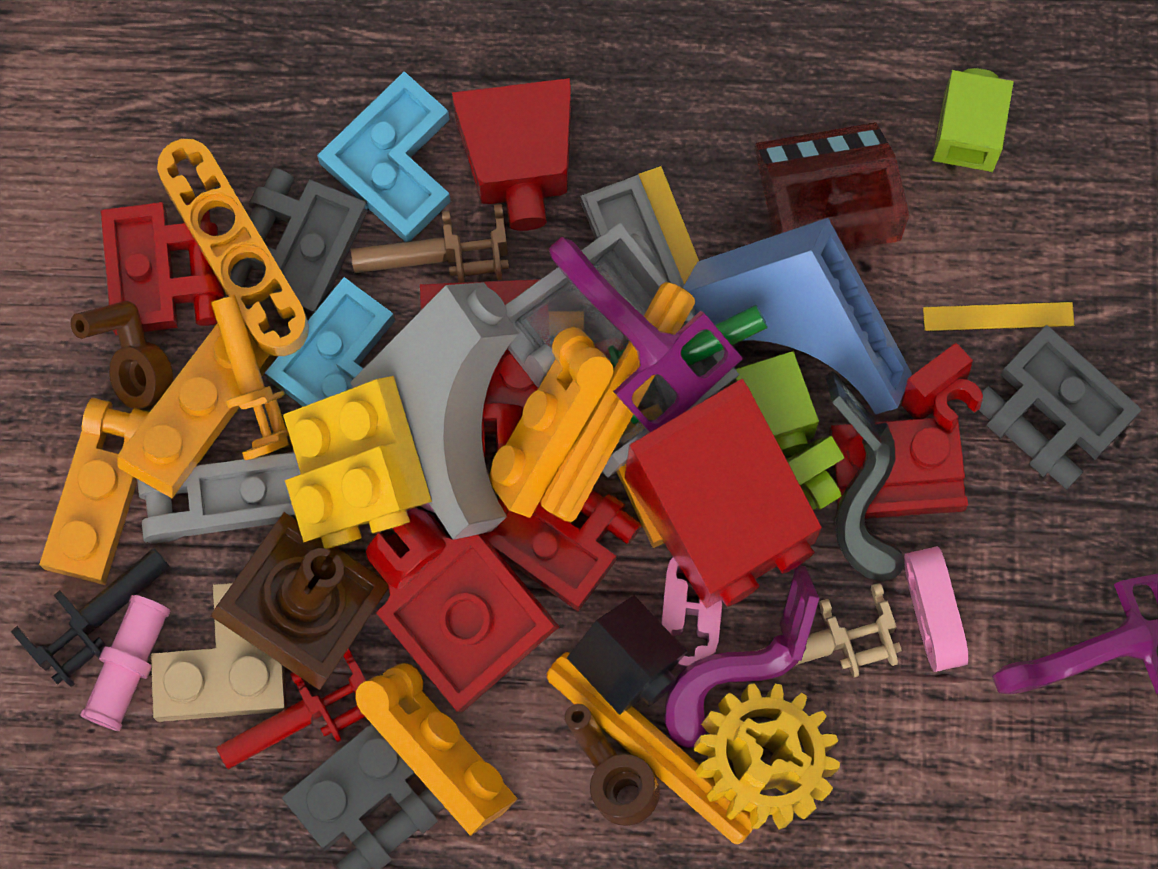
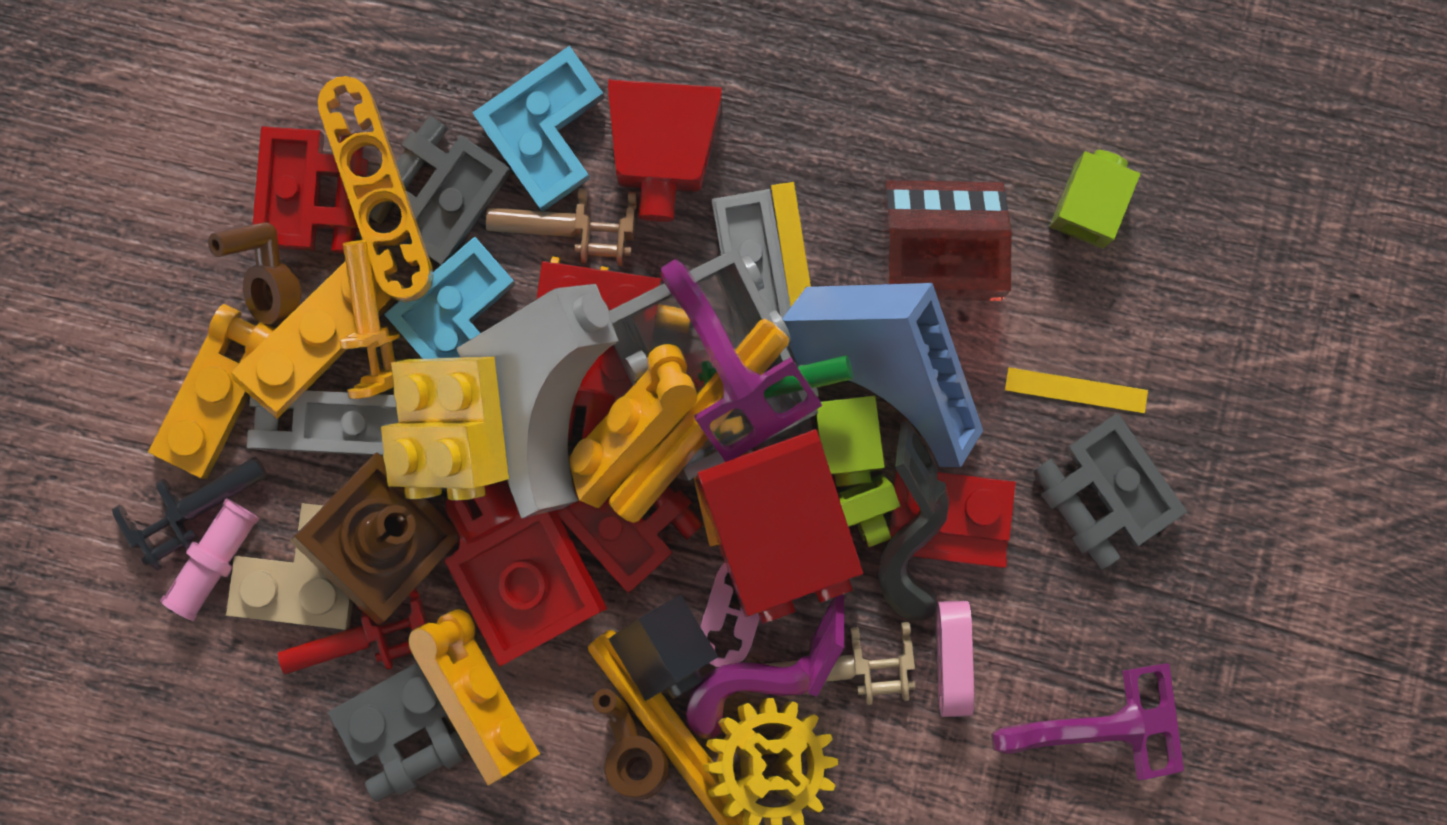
camera: 10 degrees right, 10 degrees up
(939, 383) = (1006, 449): red tile -> none

